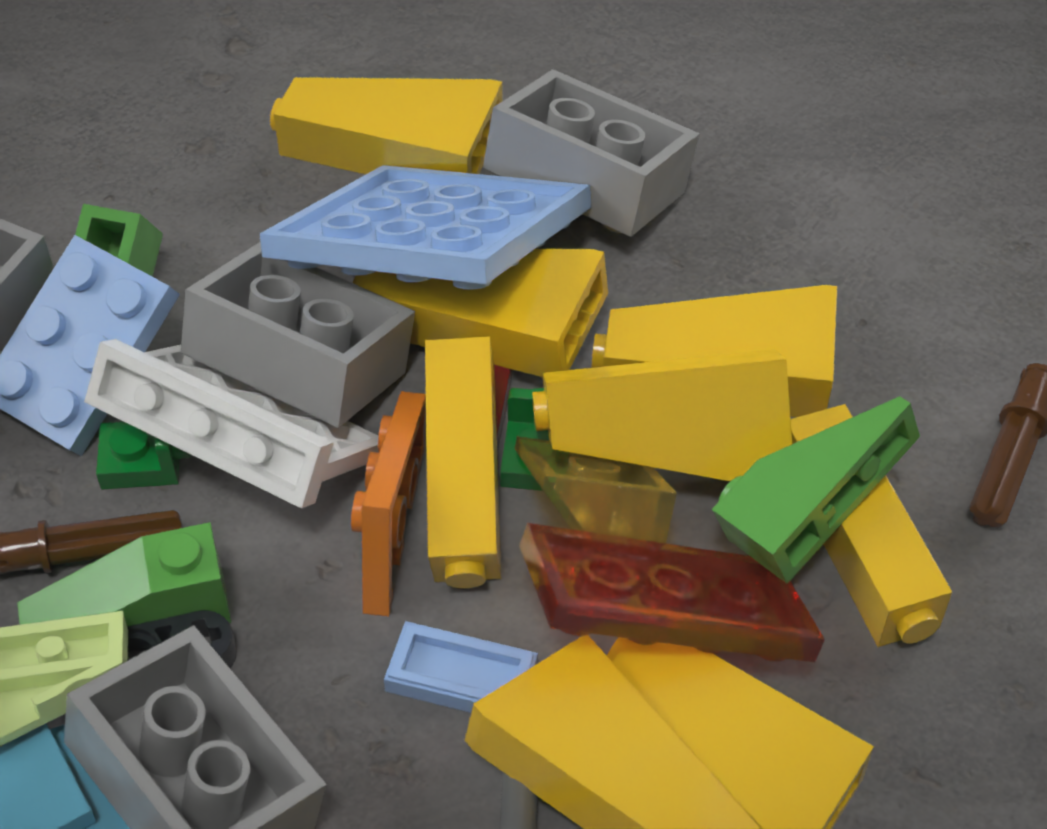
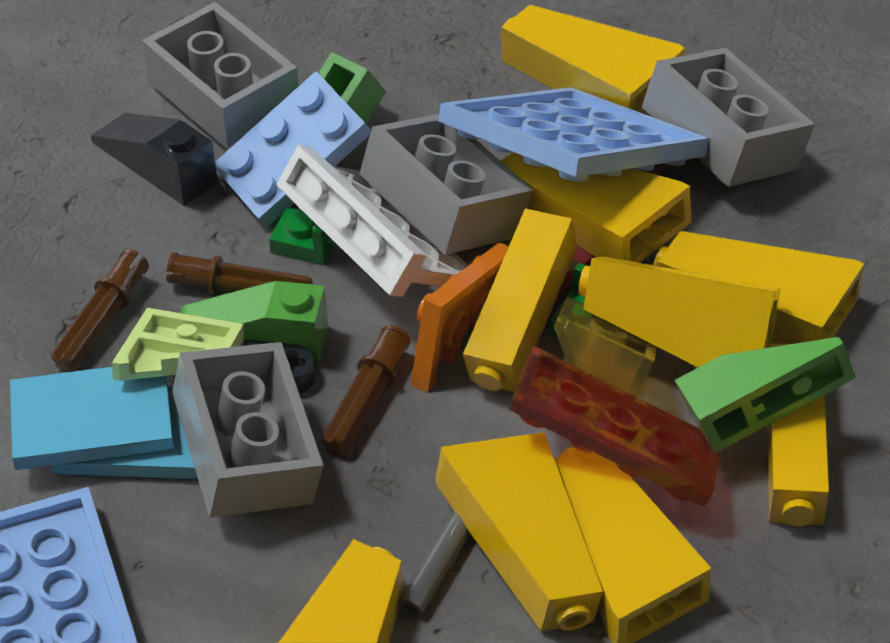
camera: 25 degrees right, 5 degrees down
(316, 620) = (374, 374): none -> reddish brown axle
(451, 666) = (442, 425): light blue tile -> none

